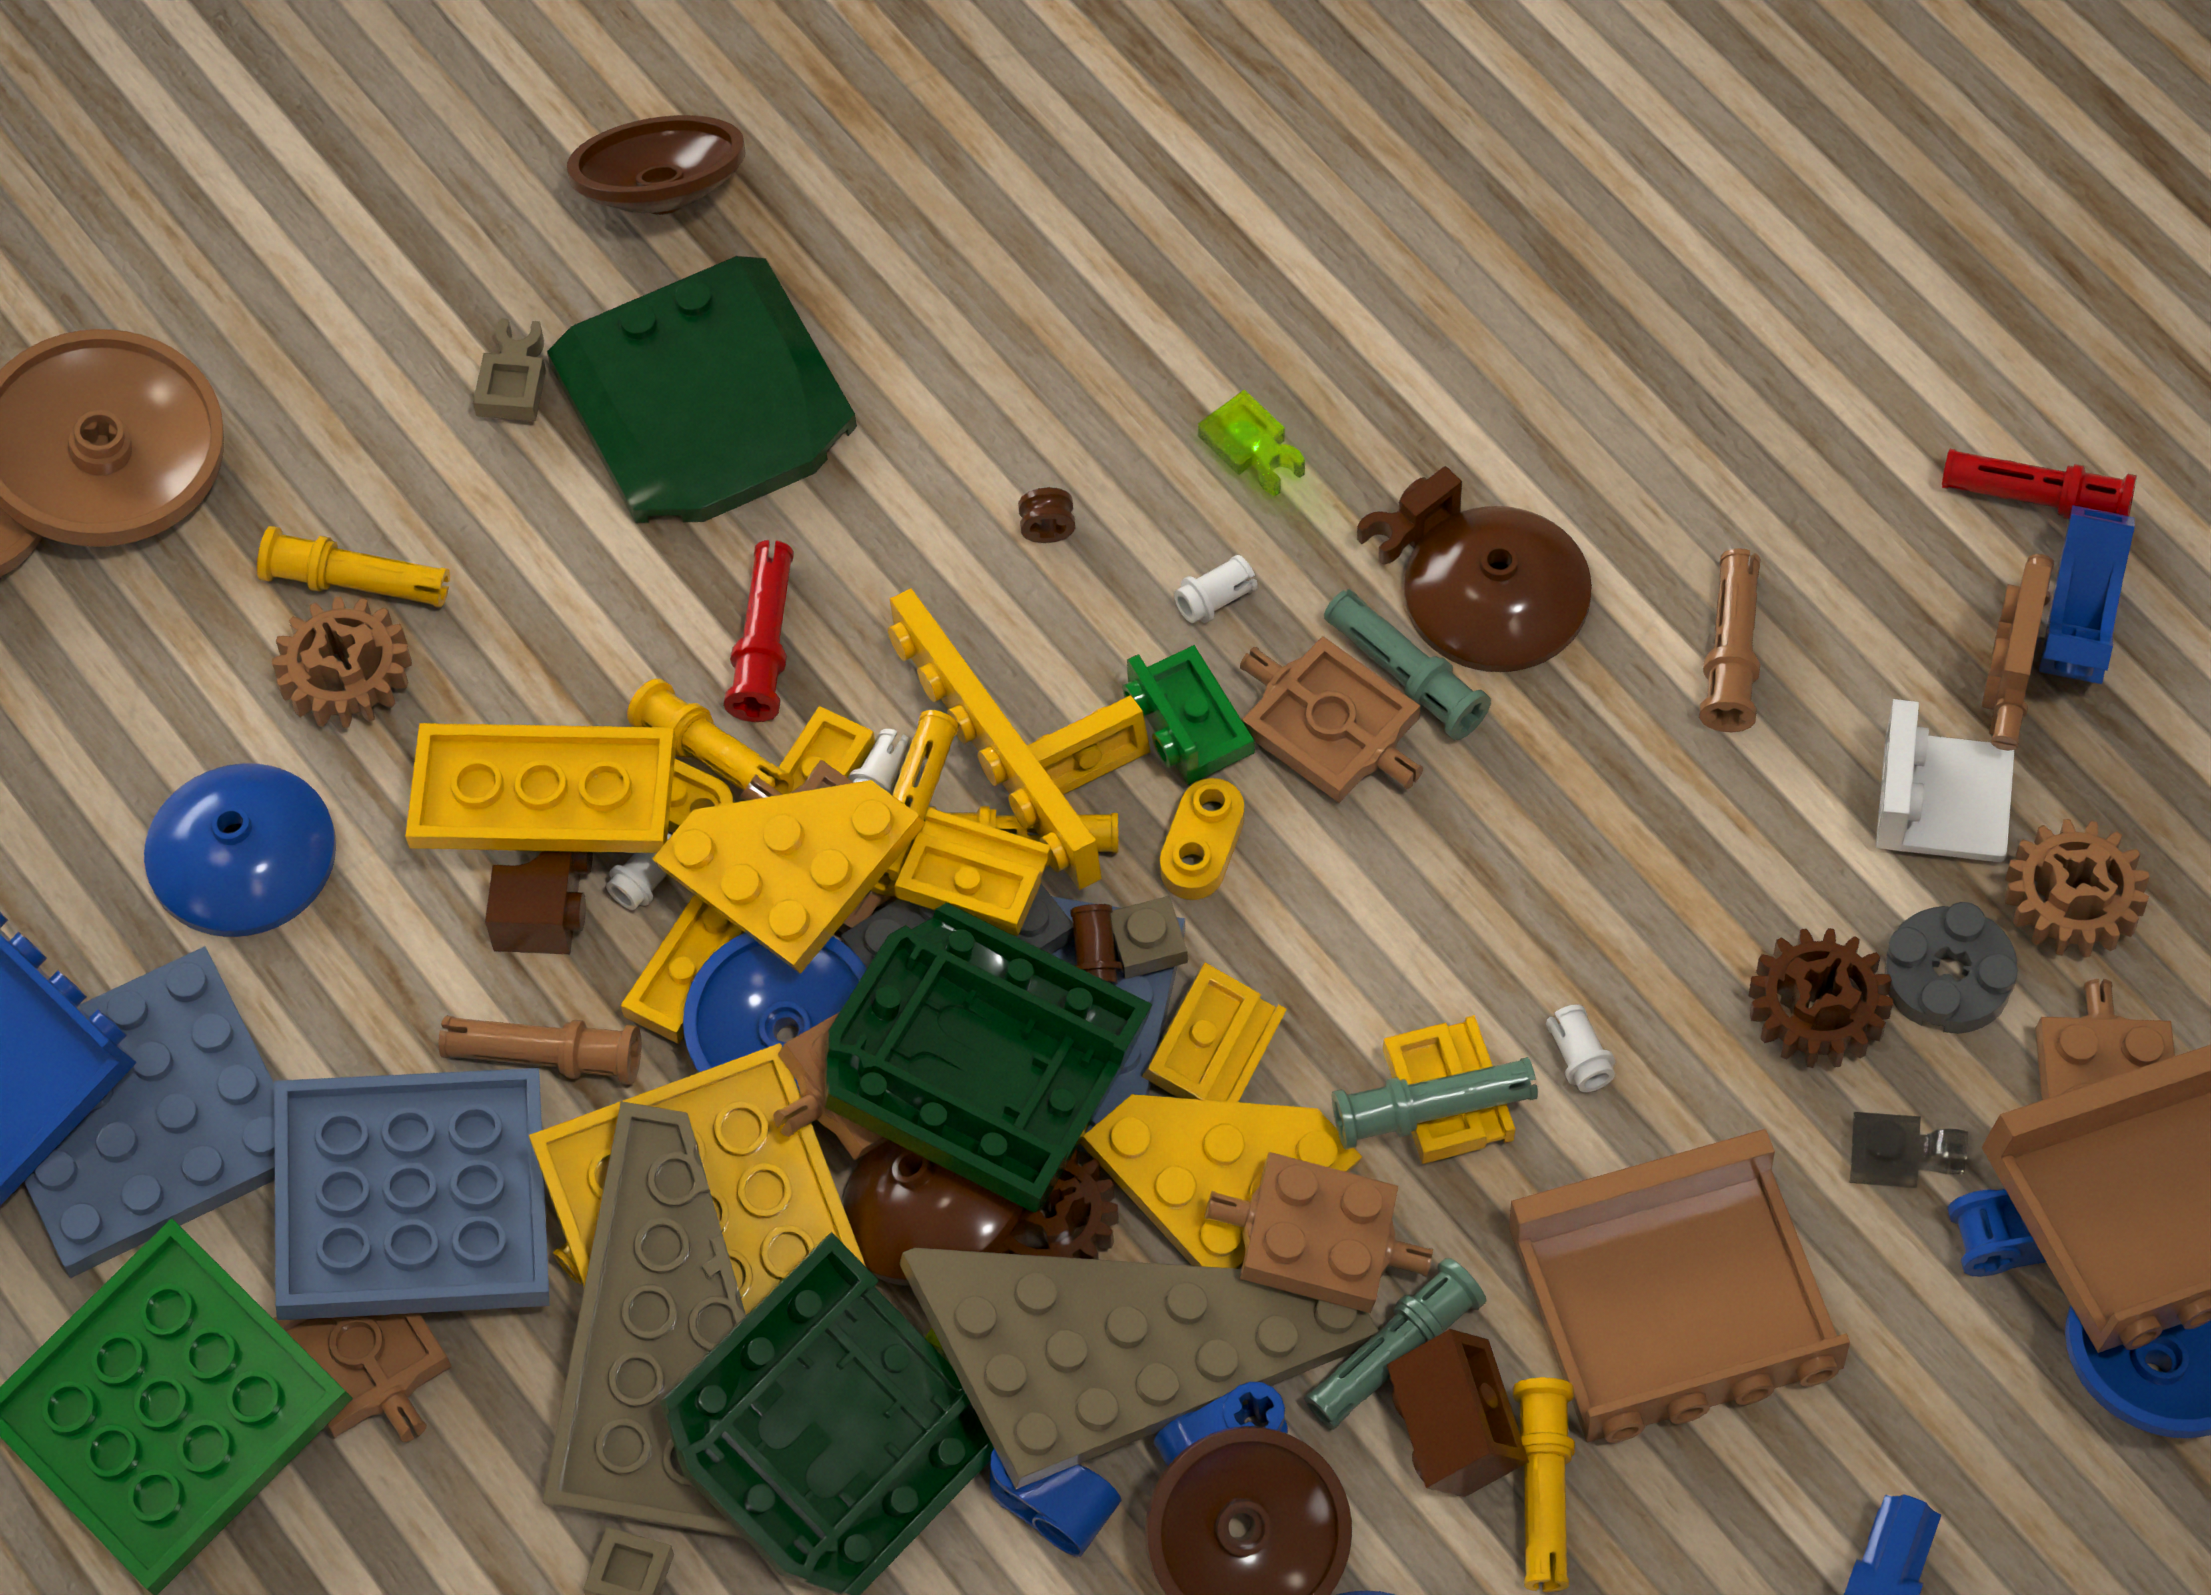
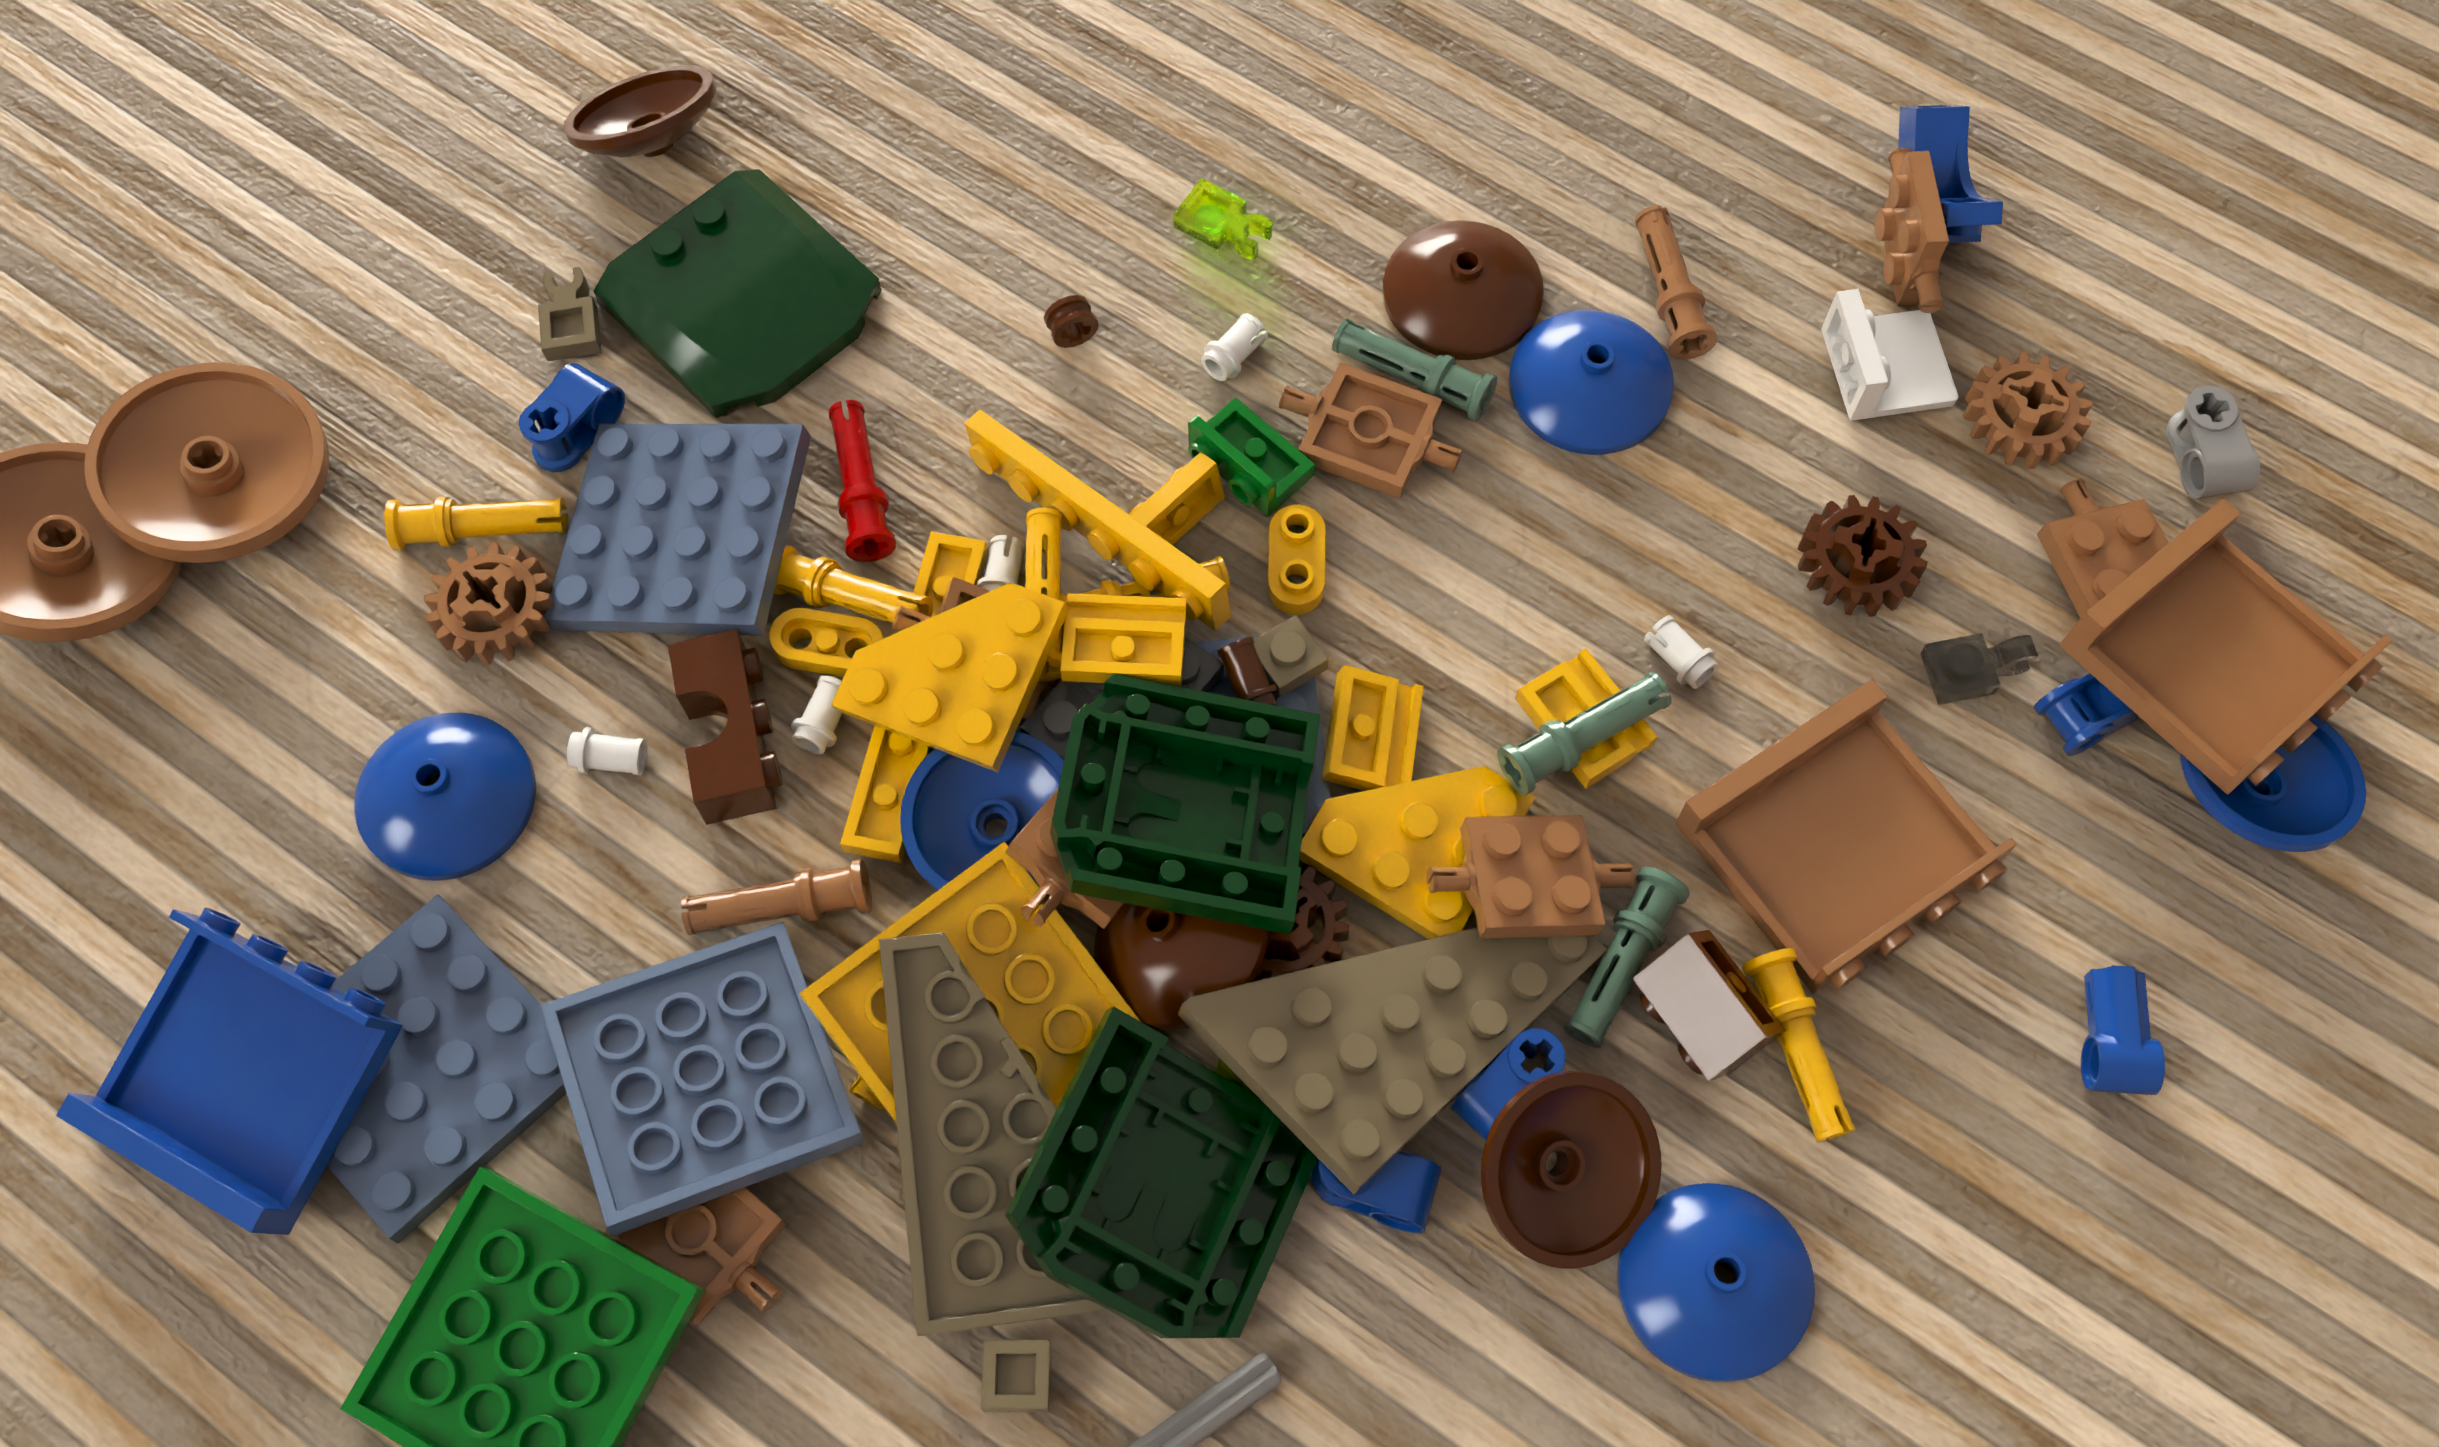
camera: 20 degrees left, 5 degrees up
(393, 847) = (607, 753): none -> white pin
(485, 476) = (569, 412): none -> blue piece
(541, 788) = (708, 668): yellow plate -> none
(558, 625) = (679, 528): none -> sand blue plate
(1420, 509) = (1382, 237): reddish brown plate -> none
(1594, 756) = (1588, 403): none -> blue dish
(1957, 934) = (1969, 481): dark grey plate -> none
(2039, 484) = (1863, 99): red pin -> none

